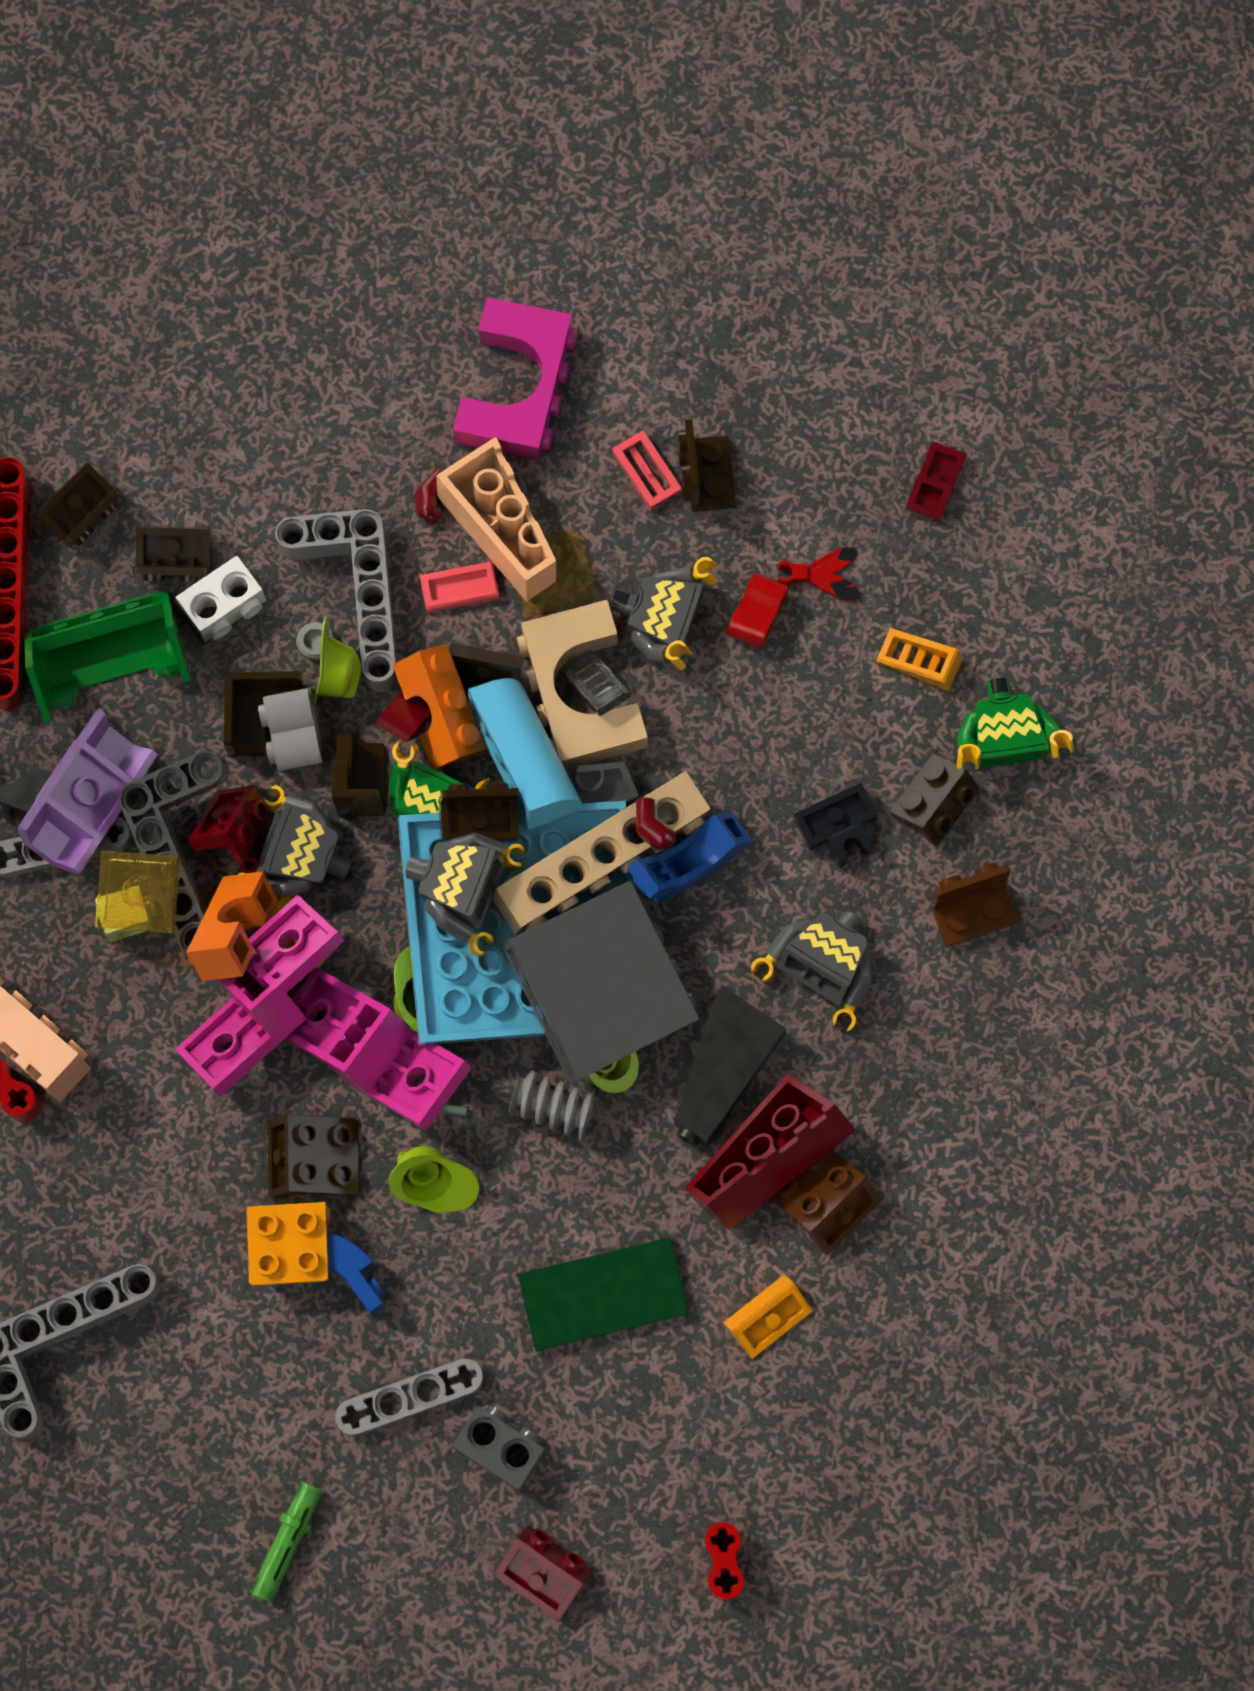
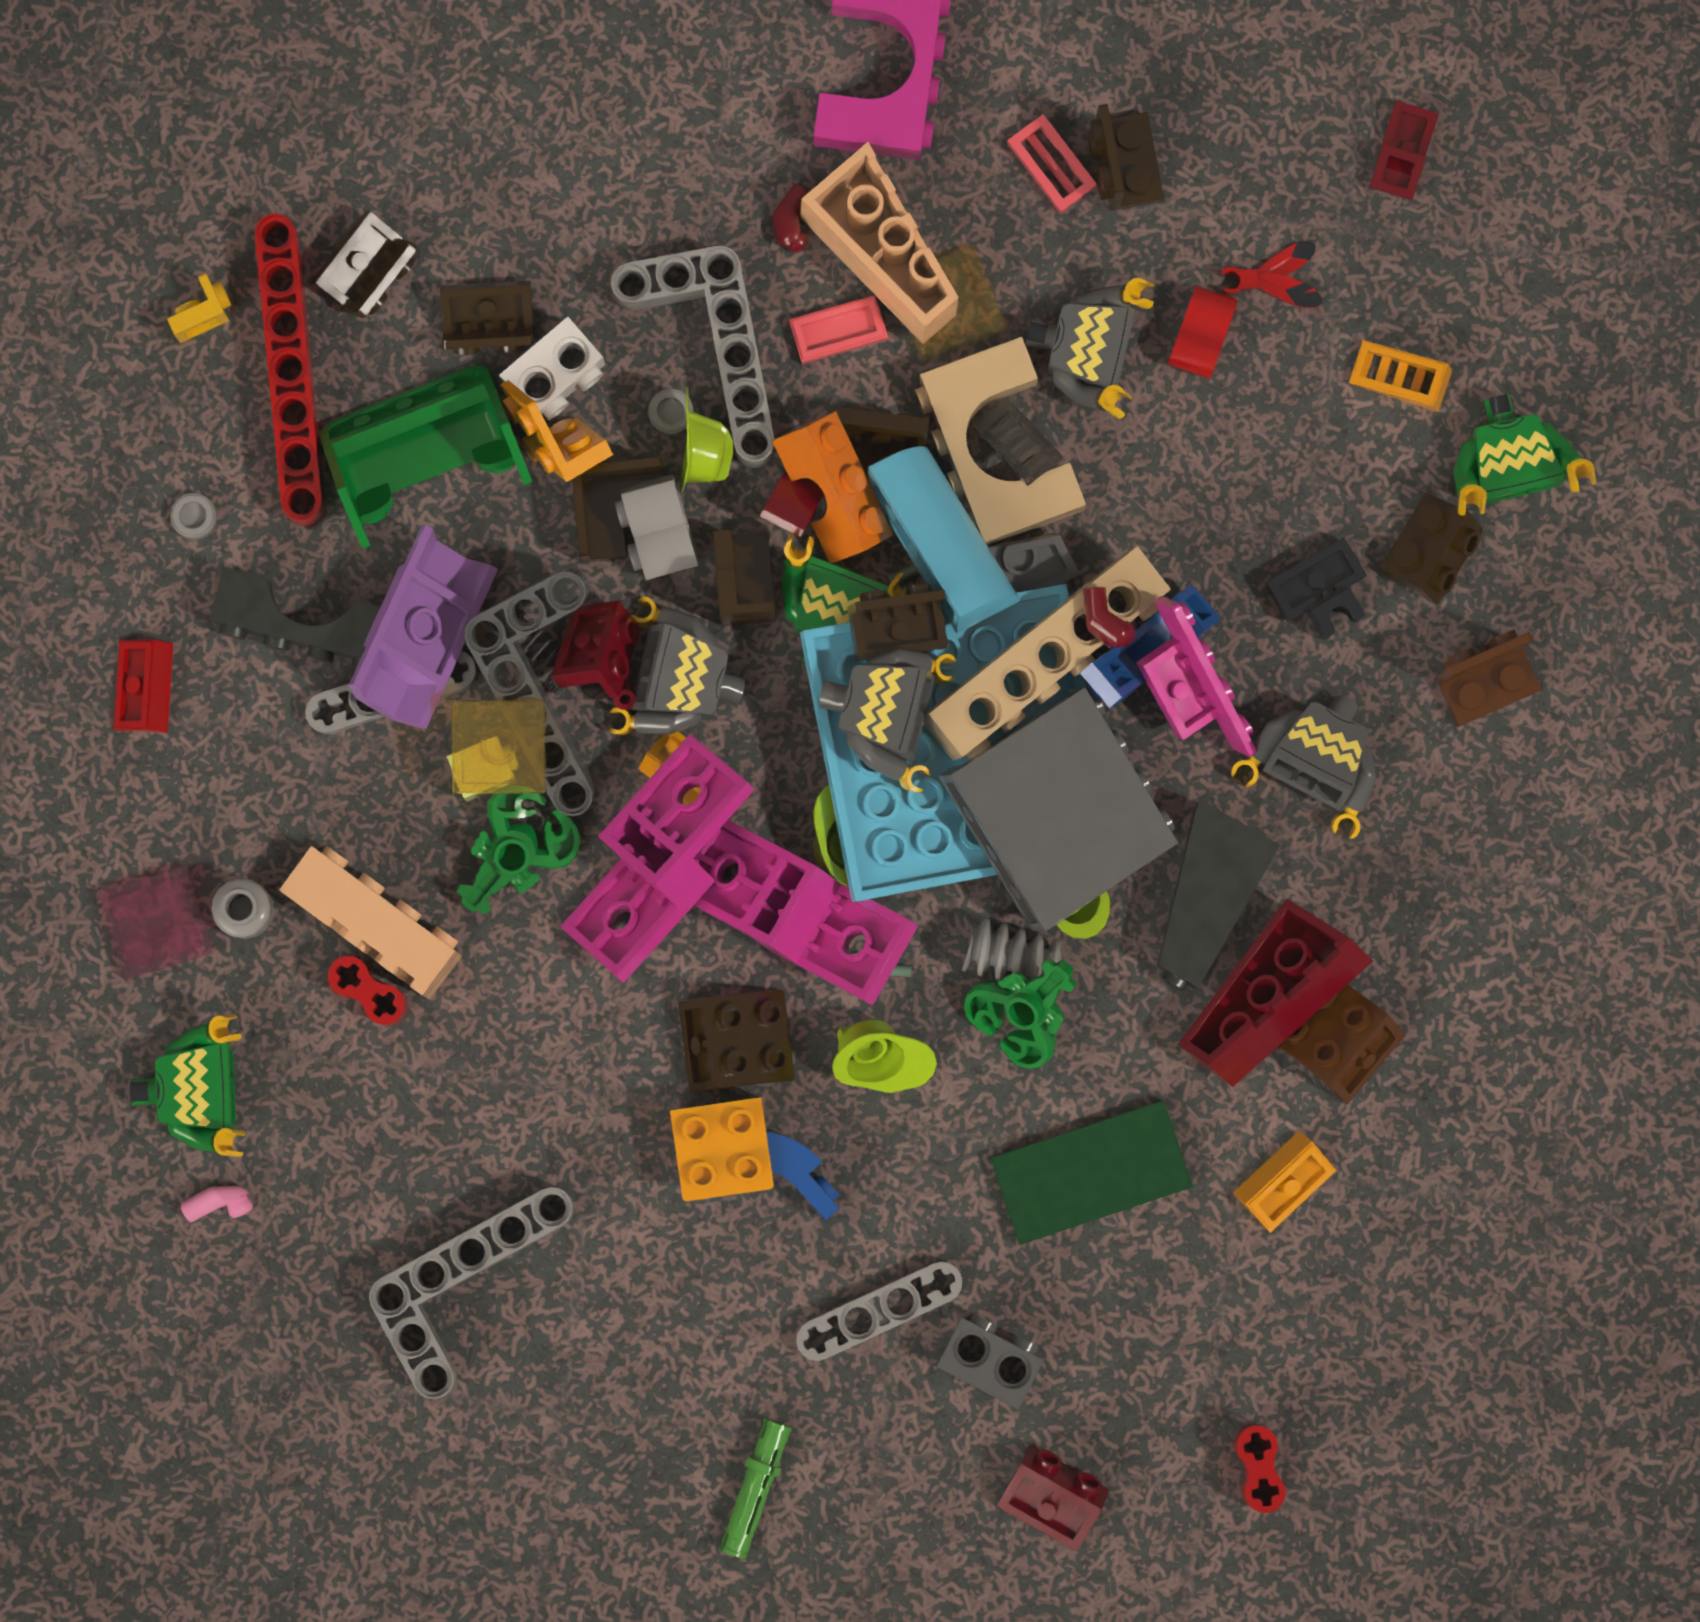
camera: 10 degrees left, 10 degrees up
(145, 981) = (516, 849): none -> green animal
(220, 943) = (607, 804): orange arch -> none
(227, 655) = (565, 448): none -> light orange bracket
(559, 1144) = (1027, 1007): none -> green animal
(718, 888) = (1187, 684): none -> dark pink bracket

